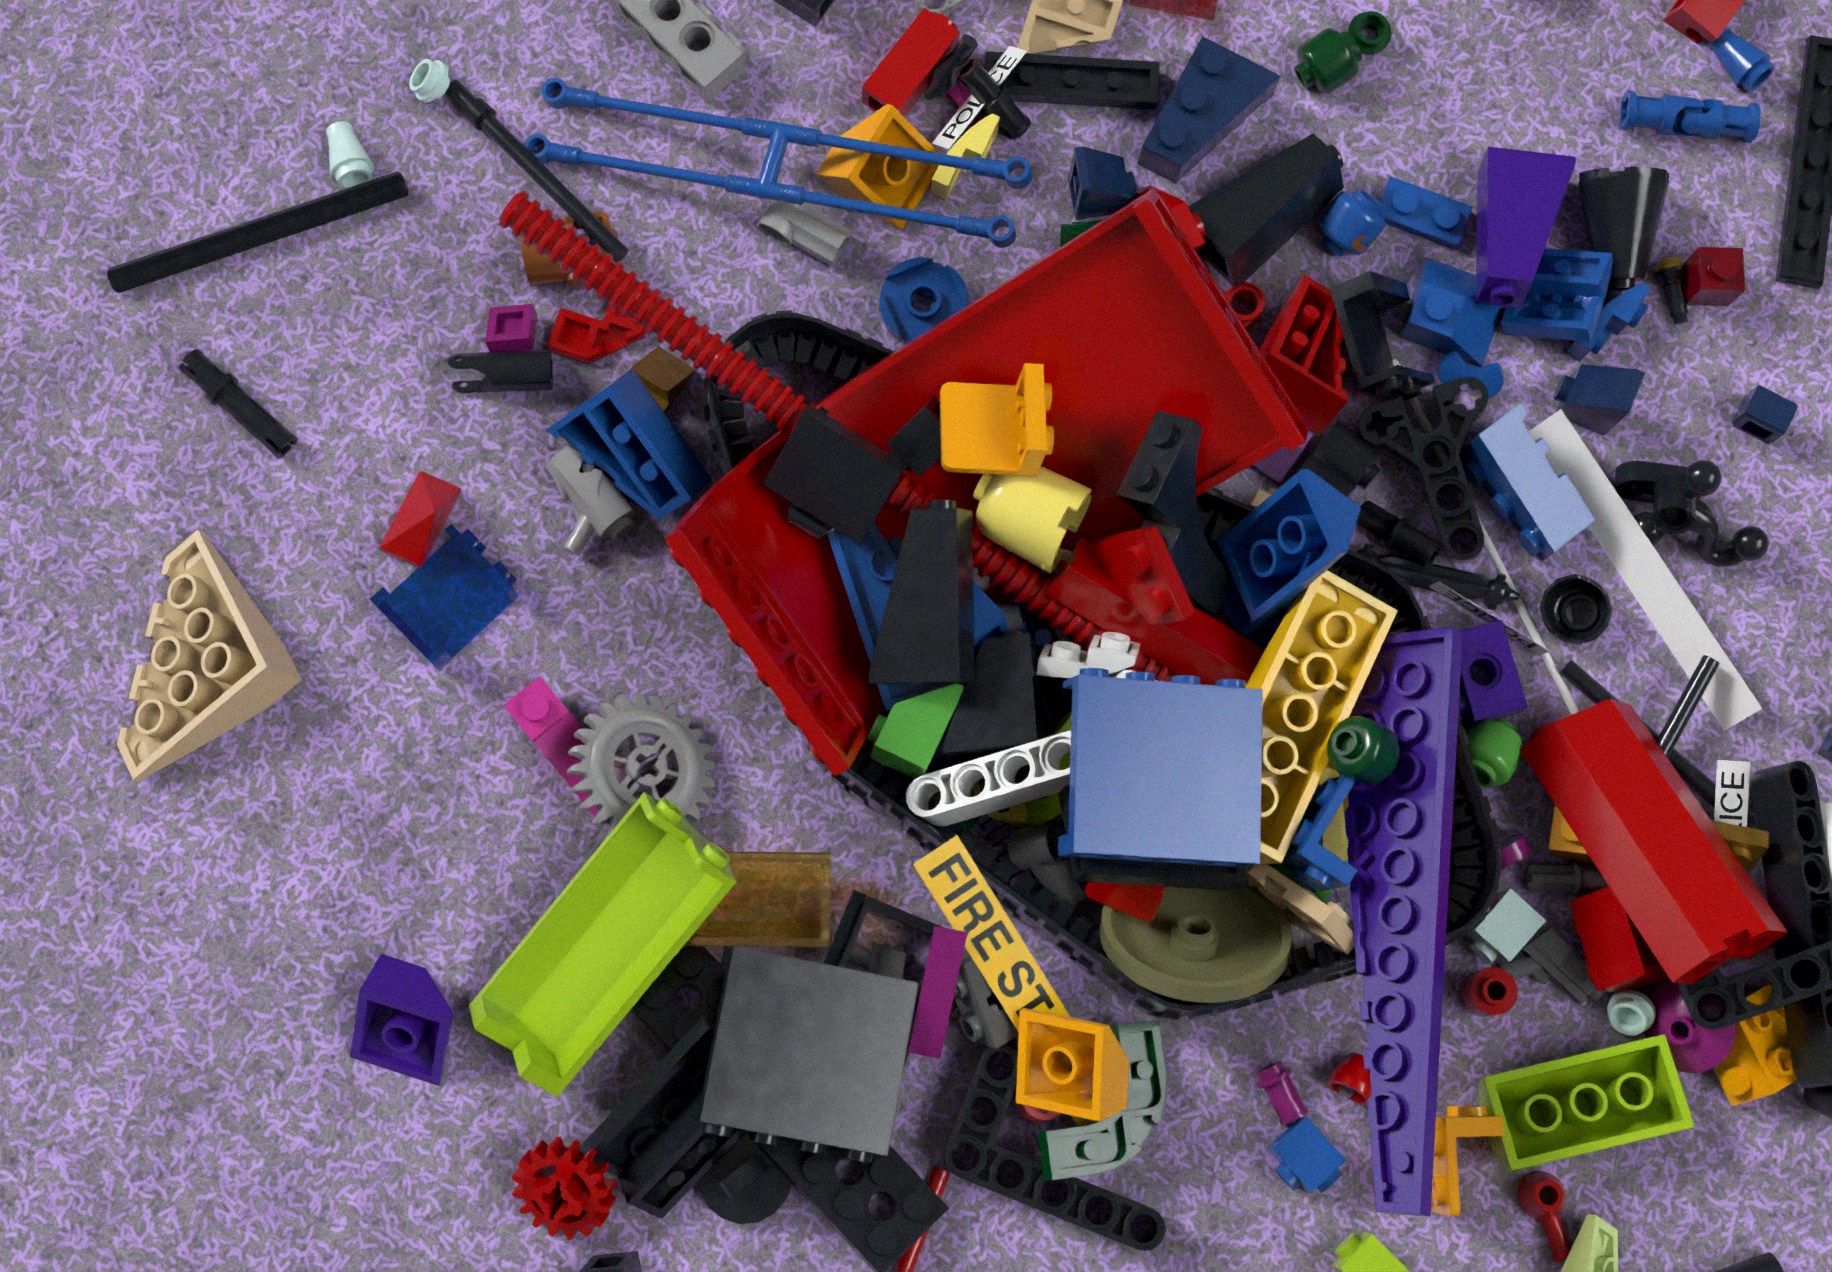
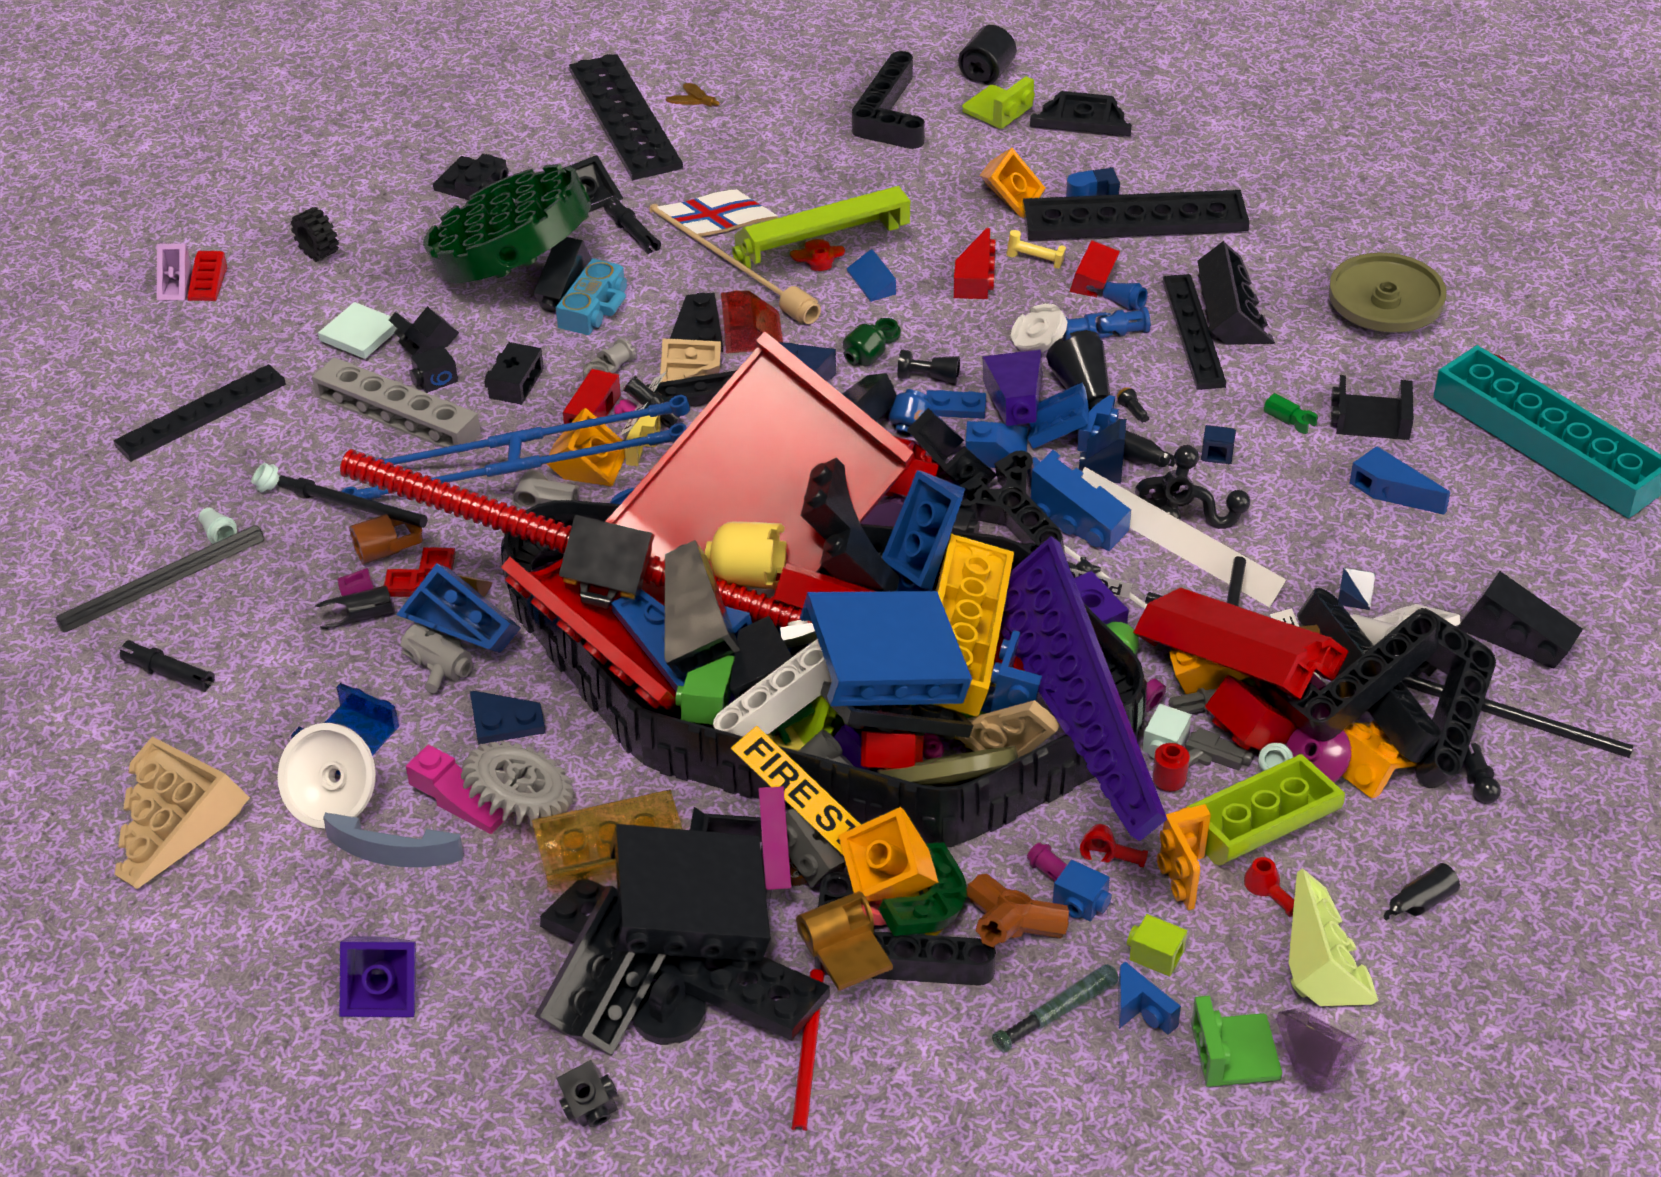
camera: 10 degrees left, 35 degrees down
(400, 688) = (309, 771): none -> white dish
(416, 782) = (433, 849): none -> sand blue slope
(420, 519) = (315, 699): red slope -> none
(564, 1188) = (530, 1025): red gear -> none
(602, 943) = (516, 873): lime panel -> none
(656, 626) = (505, 717): none -> dark blue wing
(919, 438) = (667, 529): black brick -> none
(944, 73) = (619, 396): black bar -> none
(978, 1167) = (844, 940): none -> pearl gold piece
(996, 425) = (710, 503): light orange bracket -> none
(1144, 573) = (834, 556): red wing -> none
(1190, 1188) = (1013, 912): none -> dark orange piece
(1363, 749) = (1019, 613): dark green head -> none
(1423, 139) = (940, 368): none -> black piece
(1588, 606) = (1139, 555): black hair -> none
(1589, 103) = (1039, 328): none -> white tile
(1657, 392) = (1145, 451): none -> black piece
(1714, 276) = (1154, 387): dark red brick -> none

